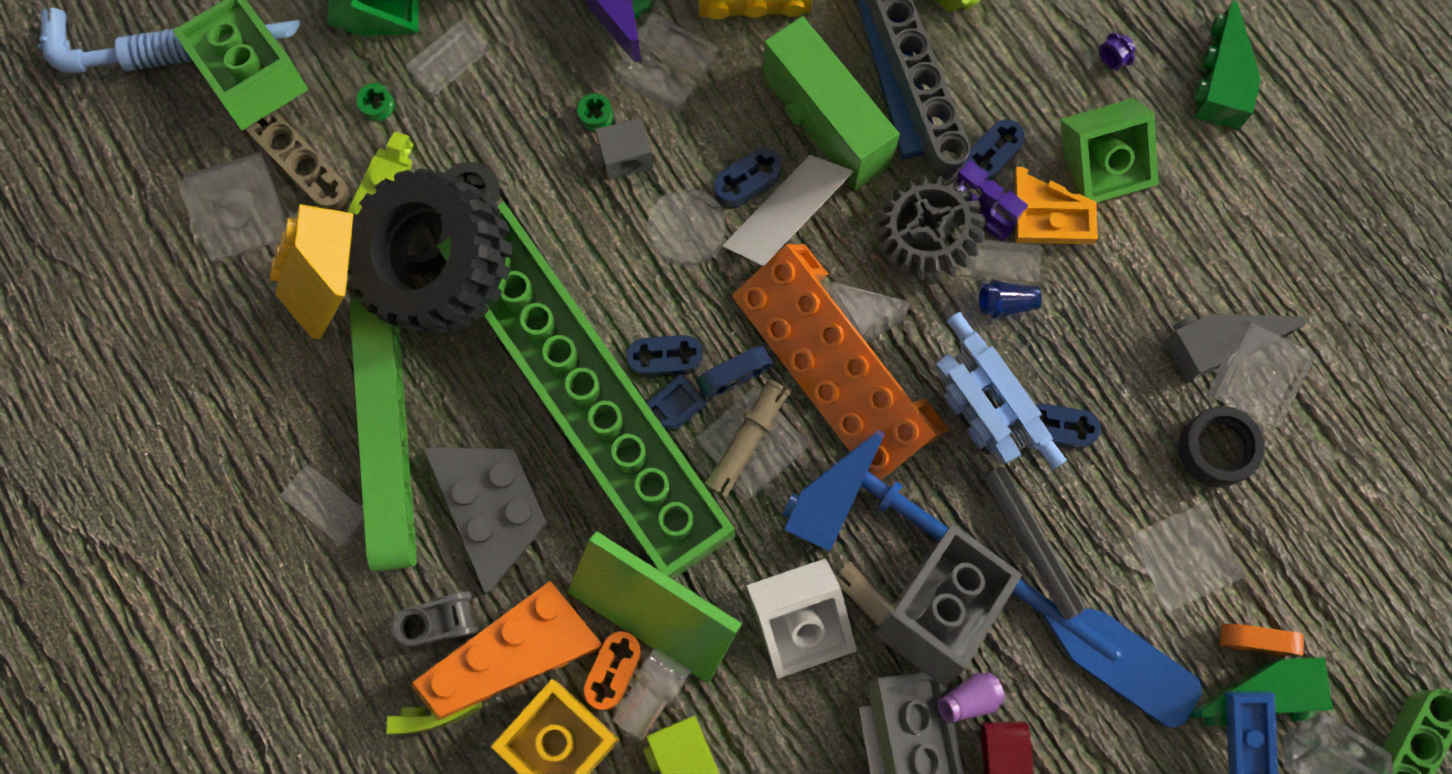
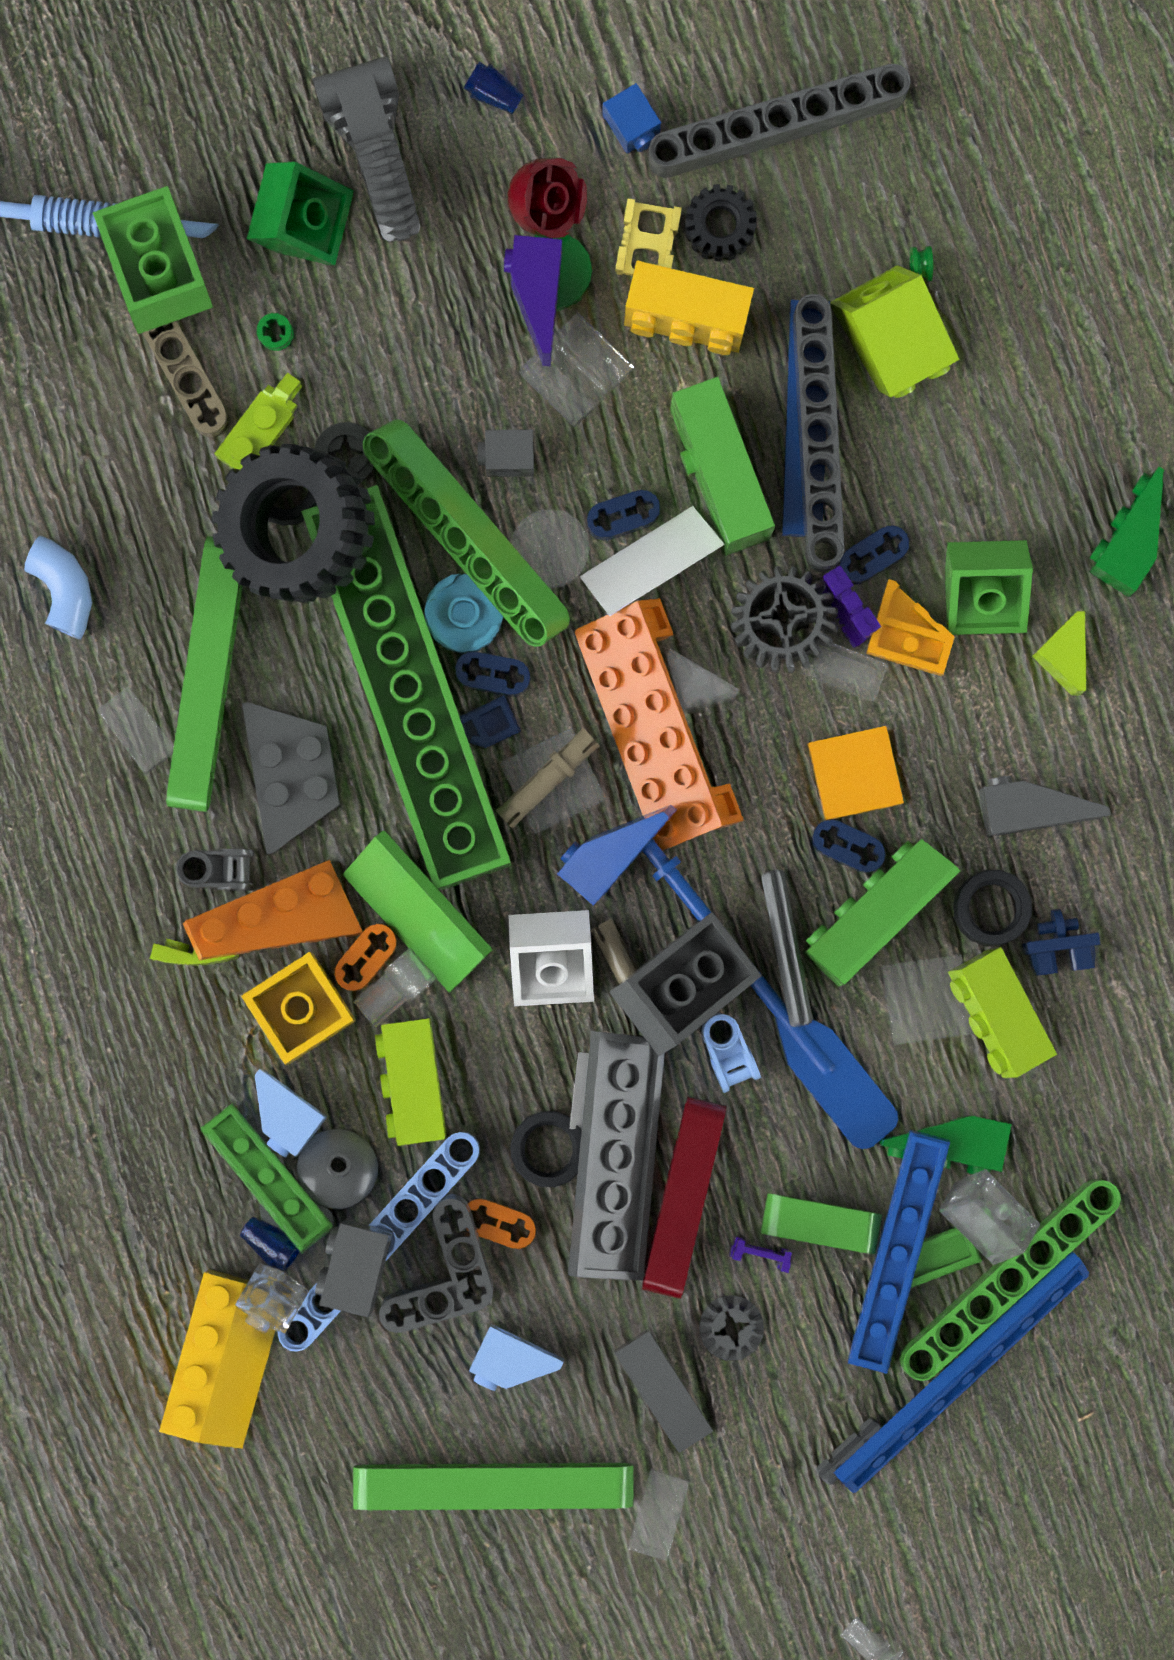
camera: 10 degrees right, 10 degrees up
(223, 381) = (66, 583): none -> light blue cylinder
(234, 206) = (113, 408): clear slope -> none
(313, 266) = (182, 511): yellow slope -> none
(447, 57) = (358, 303): clear tile -> none
(596, 100) = (503, 406): green bush -> none
(604, 230) = (466, 532): none -> bright green beam
(621, 307) = (461, 615): none -> medium azure tile
(734, 372) = (554, 709): dark blue beam -> none
(972, 698) = (684, 1072): medium lavender cone -> none
(989, 425) = (762, 794): light blue piece -> none
(1008, 298) = (839, 709): clear blue cone -> none
(1013, 666) = (729, 1054): none -> light blue piece
(1045, 354) = (855, 773): none -> light orange tile
(1117, 51) = (1032, 483): dark purple plate -> none
(1118, 479) = (880, 912): none -> bright green slope
(1206, 192) = (1065, 655): none -> lime slope
(1261, 374) = (1051, 851): clear tile -> none
(1261, 640) = (965, 1094): orange beam -> none
(1271, 547) = (1001, 1013): none -> lime brick
(1287, 478) = (1080, 947): none -> dark blue hips

